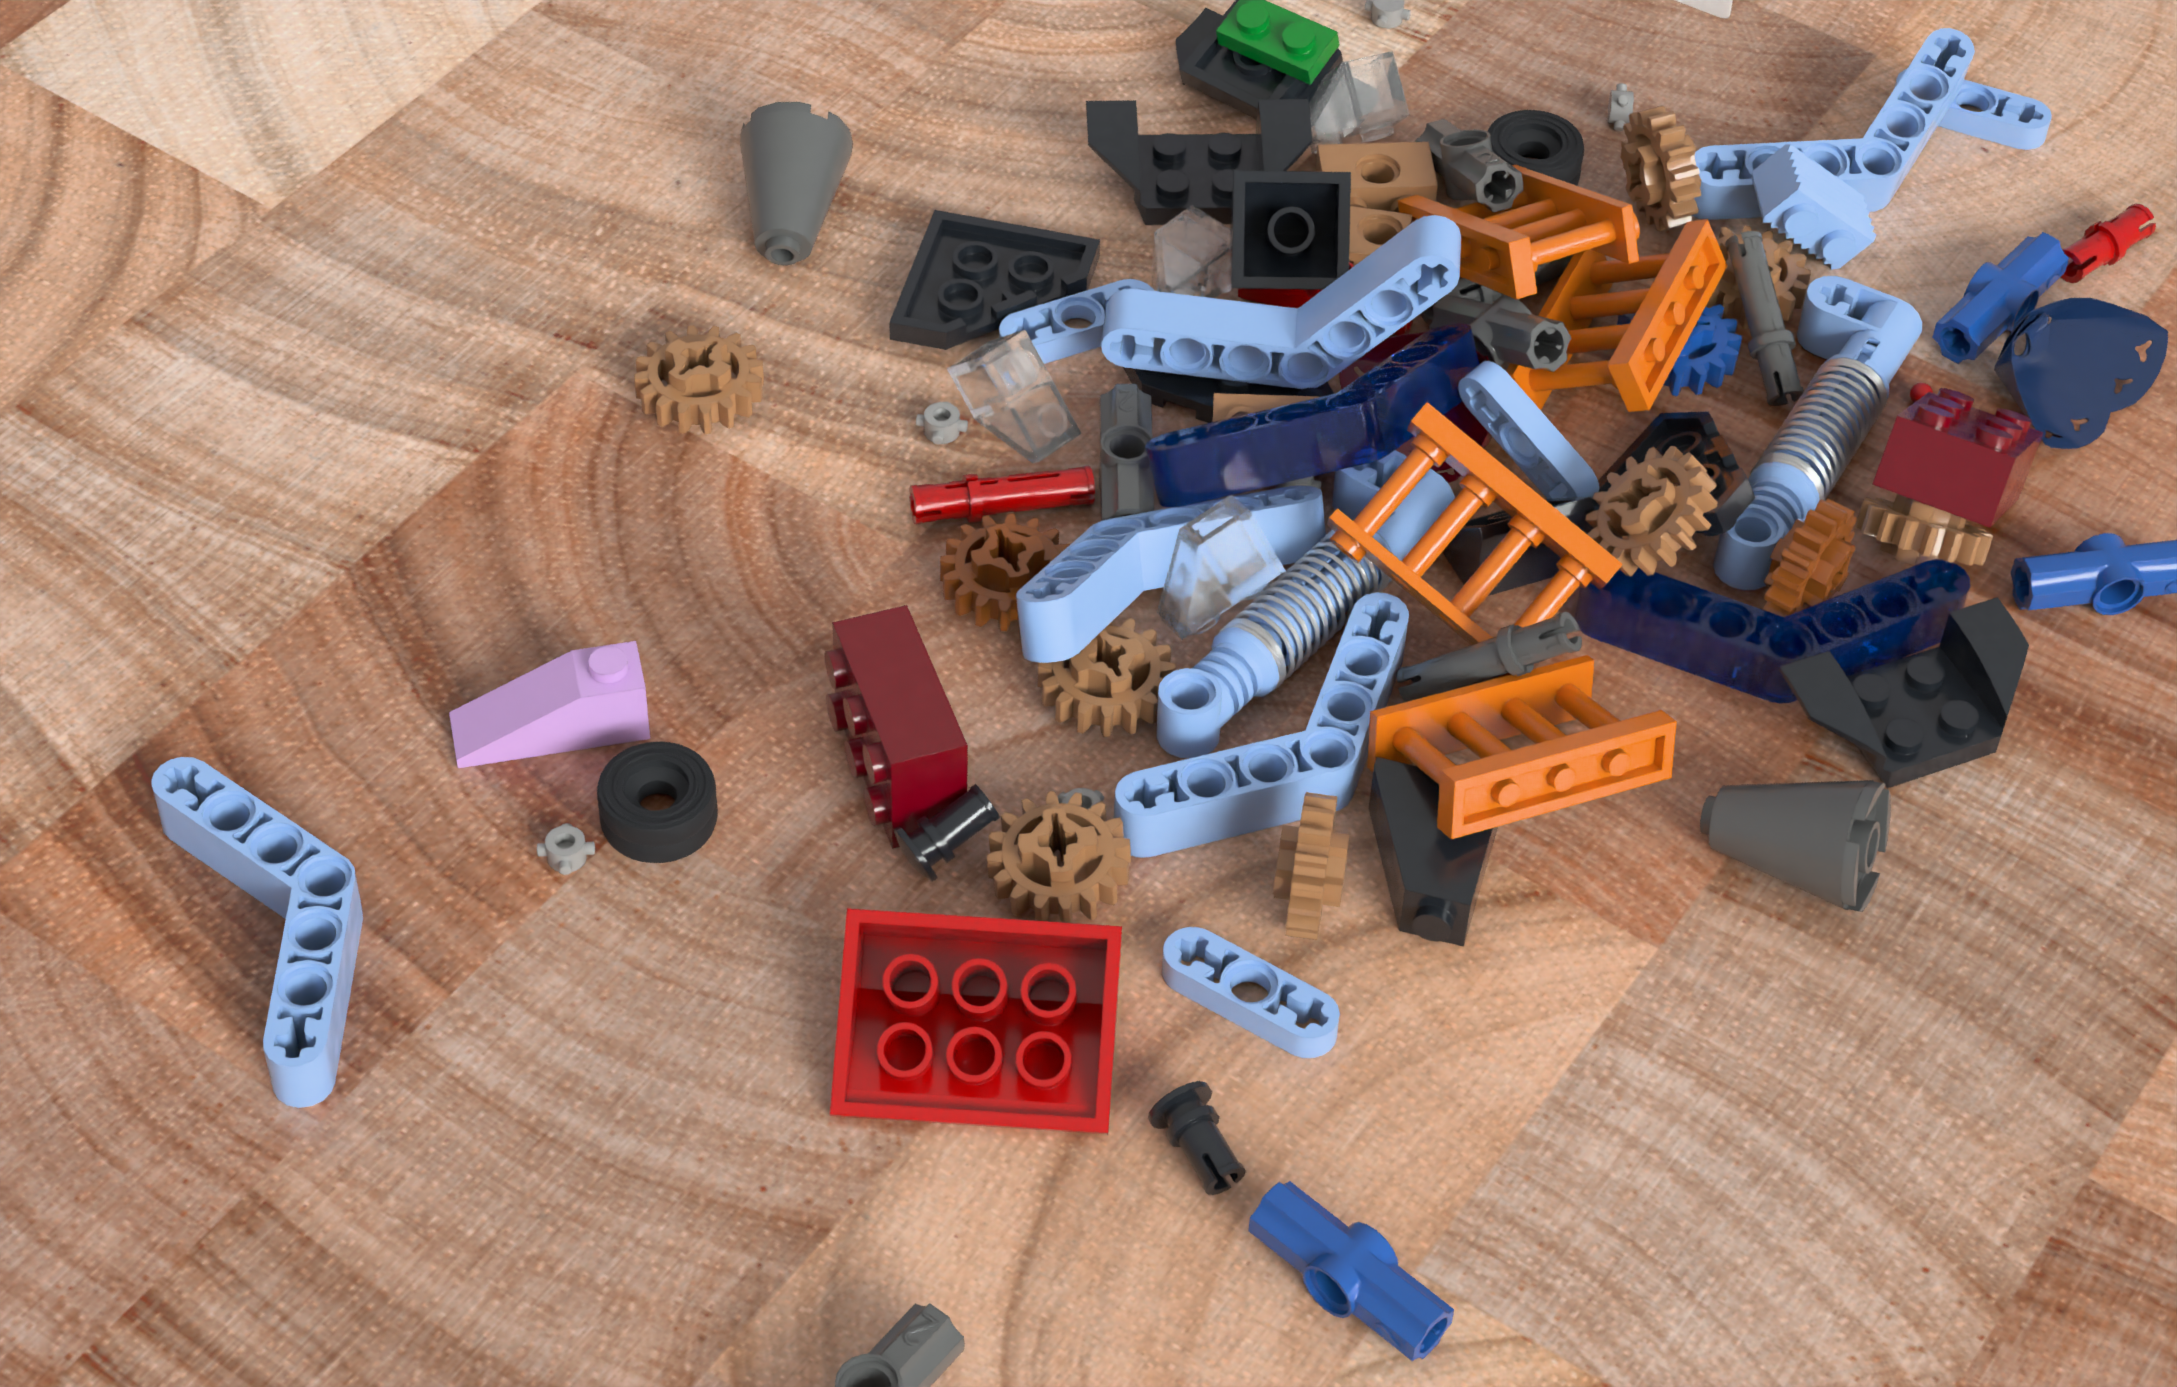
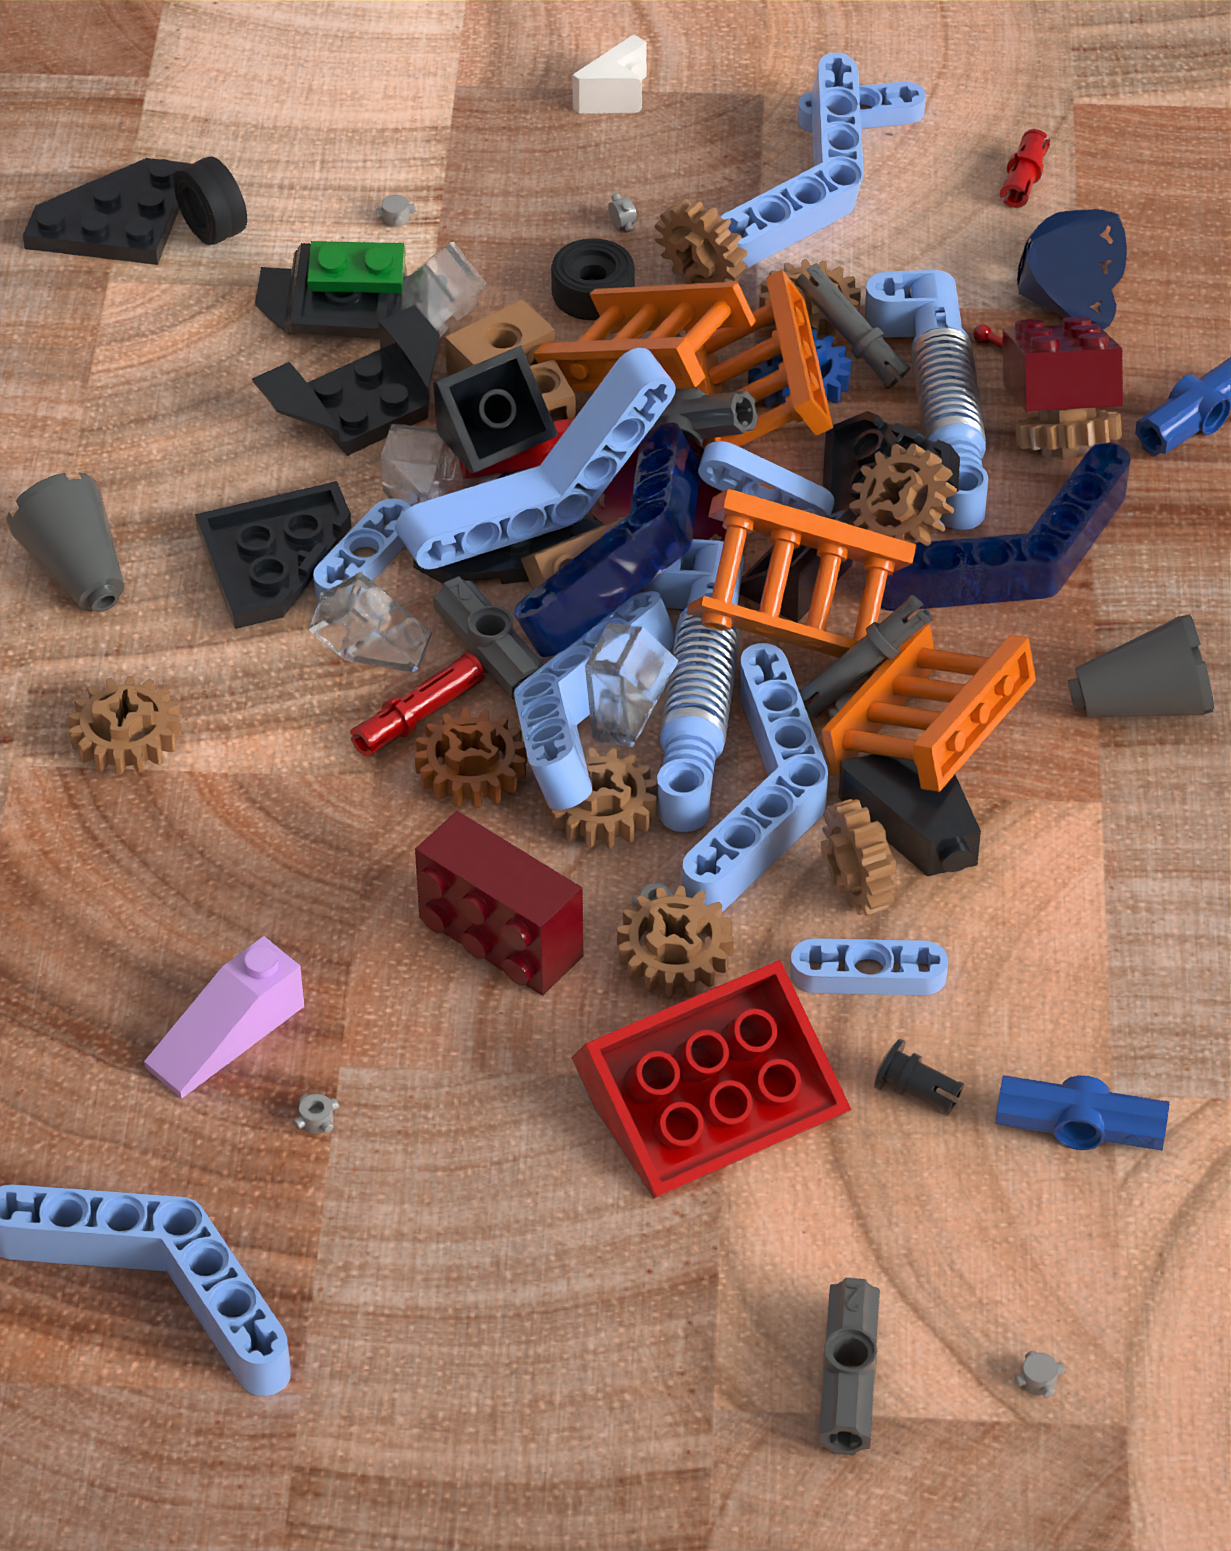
camera: 30 degrees left, 0 degrees up
(664, 833) = (358, 1073): black tyre -> none
(941, 423) = (326, 673): light grey piece -> none
(946, 831) = (584, 964): black pin -> none
(1471, 166) = (568, 304): dark grey piece -> none
(1811, 559) = (1019, 485): dark orange gear -> none
(1812, 207) = (823, 228): light blue brick -> none
(1923, 707) = (1153, 547): black piece -> none
(2000, 297) = (987, 239): blue piece -> none

